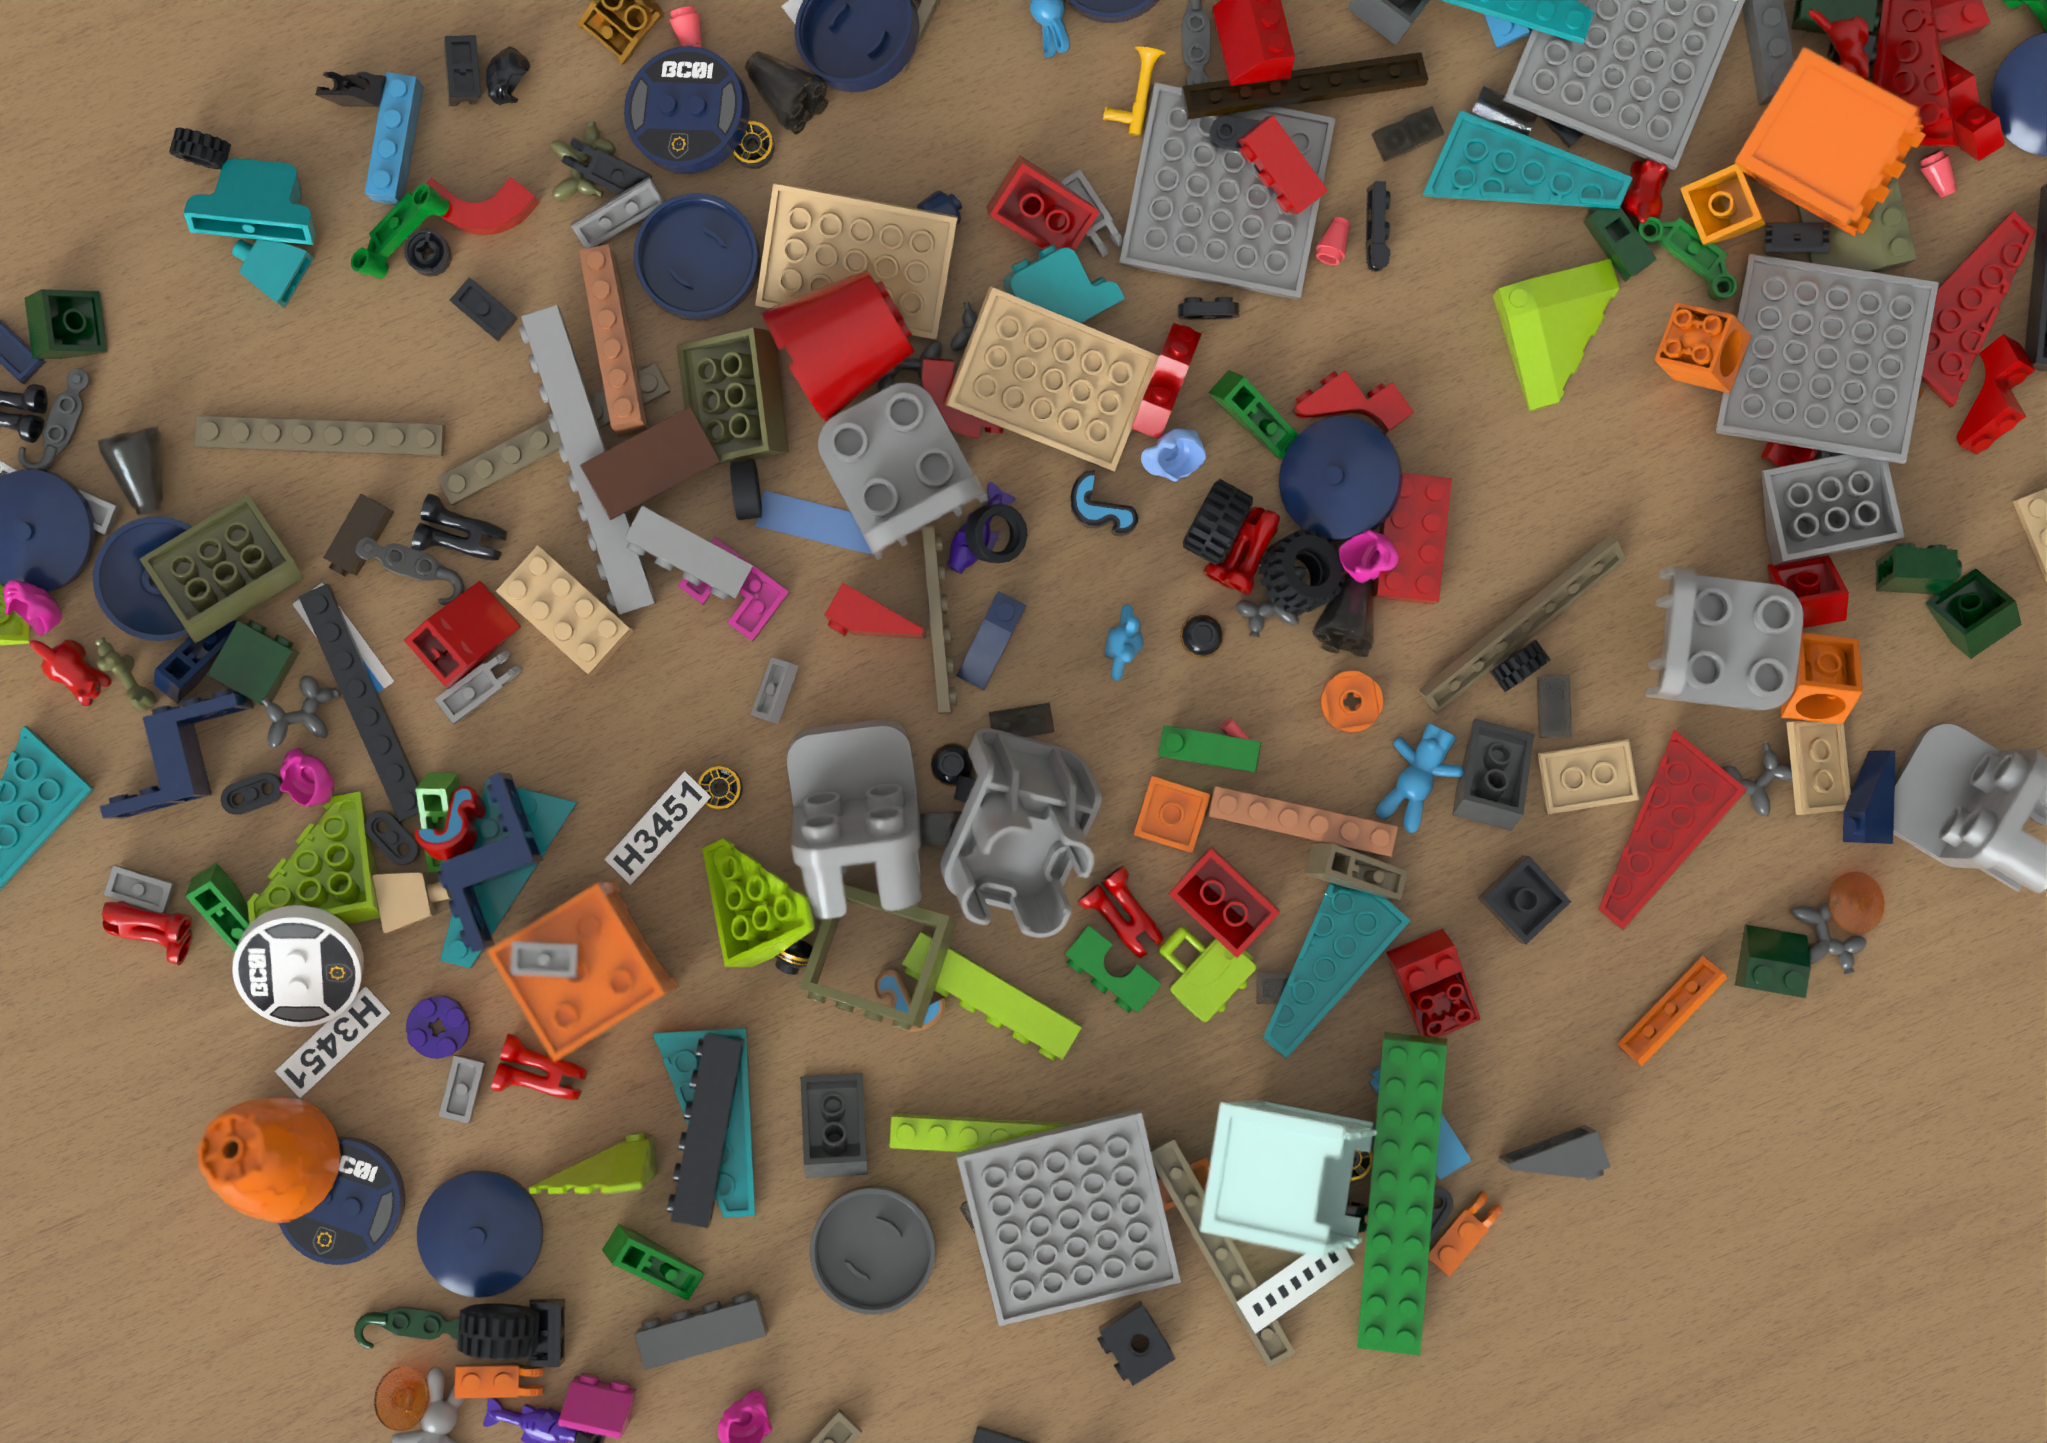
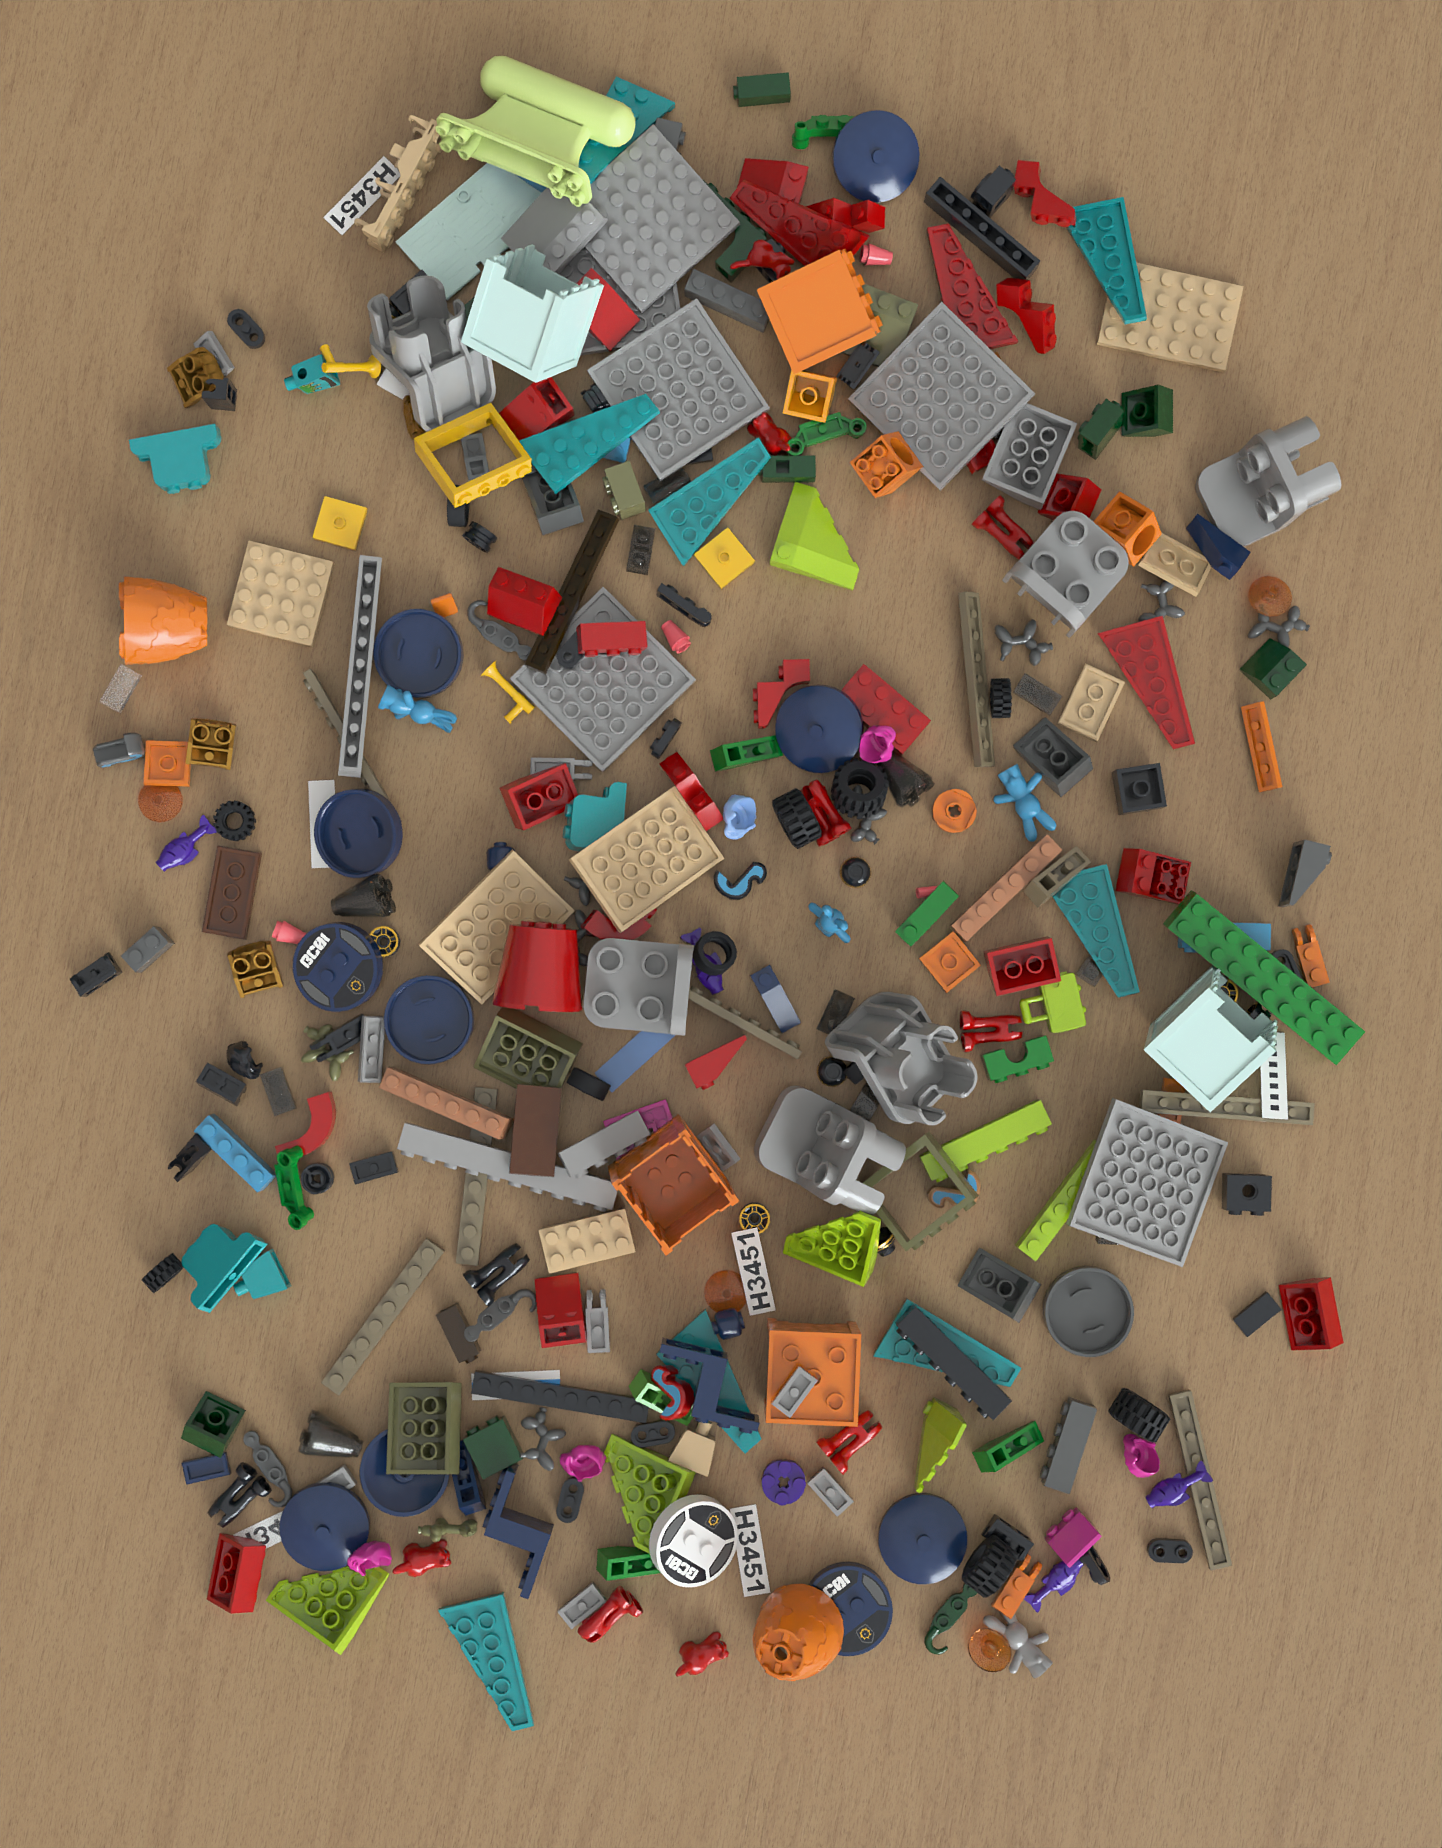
camera: 55 degrees left, 0 degrees up
(170, 1064) = (698, 1656): none -> red animal
(497, 140) = (278, 1091): none -> clear smoke plate
(577, 839) = (728, 1323): none -> dark blue head
(623, 800) = (717, 1284): none -> clear orange dish
(694, 660) = (672, 1183): none -> orange container
(791, 1389) = (1139, 1415): none -> black tyre
(1464, 237) = (724, 558): none -> yellow plate
(1467, 61) = (626, 494): none -> olive brick
(1610, 651) = (1029, 630): none -> dark grey piece
(1737, 514) = (1016, 533): none -> red piece

